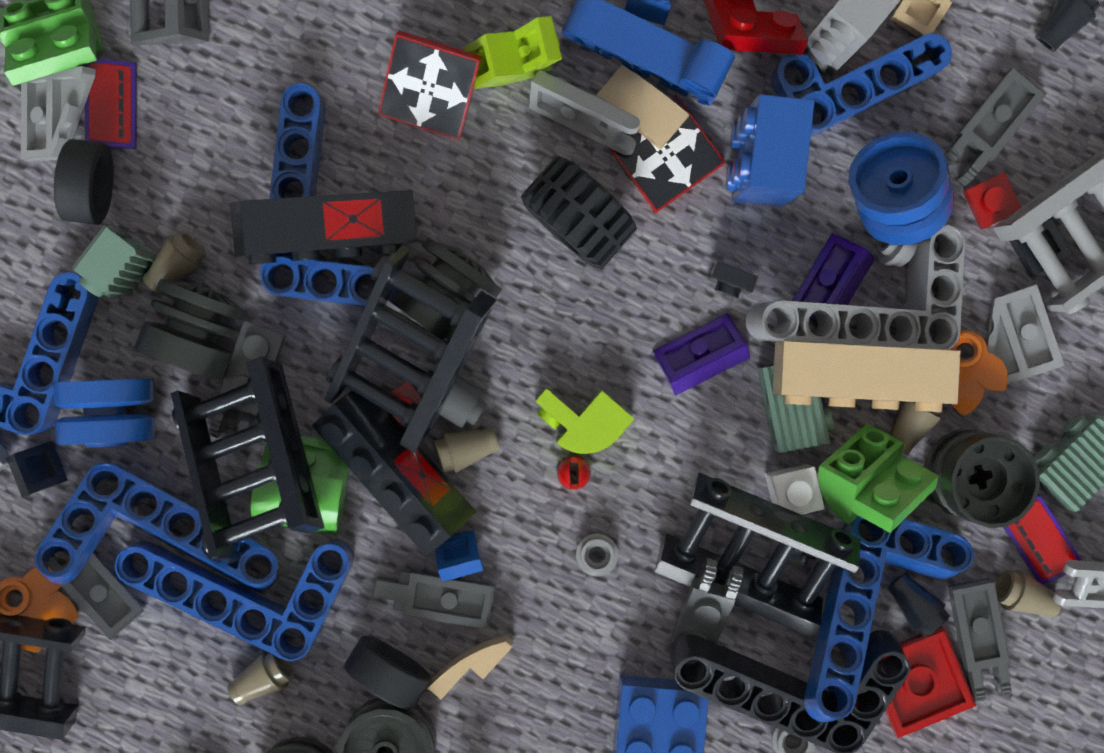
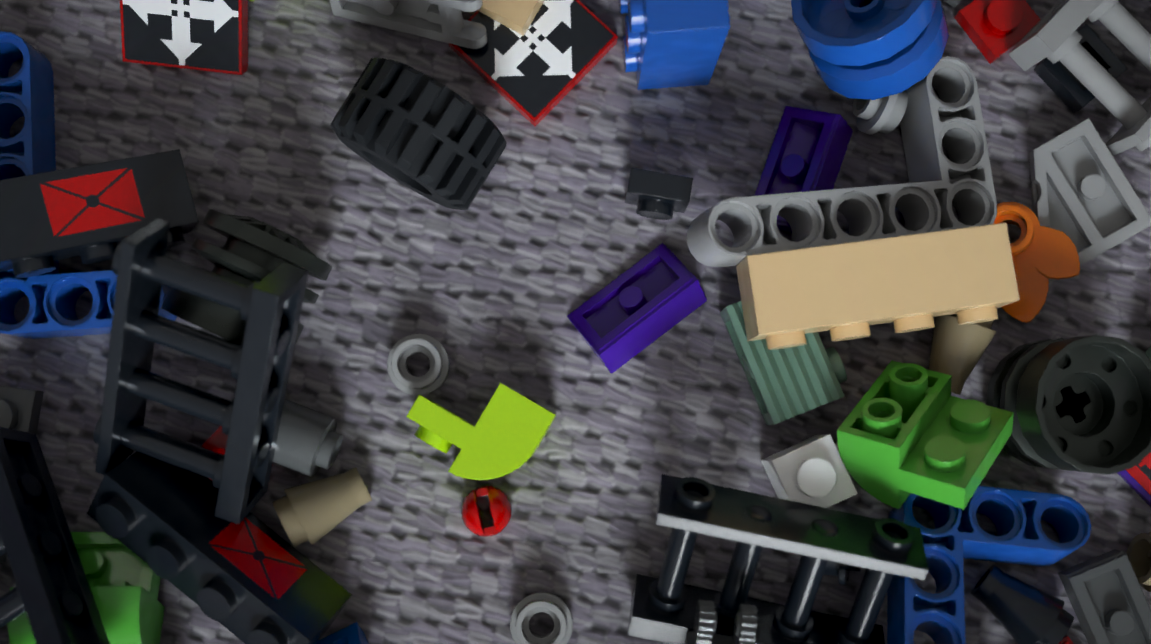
camera: 15 degrees left, 5 degrees down
(557, 357) = (398, 364): none -> light grey plate

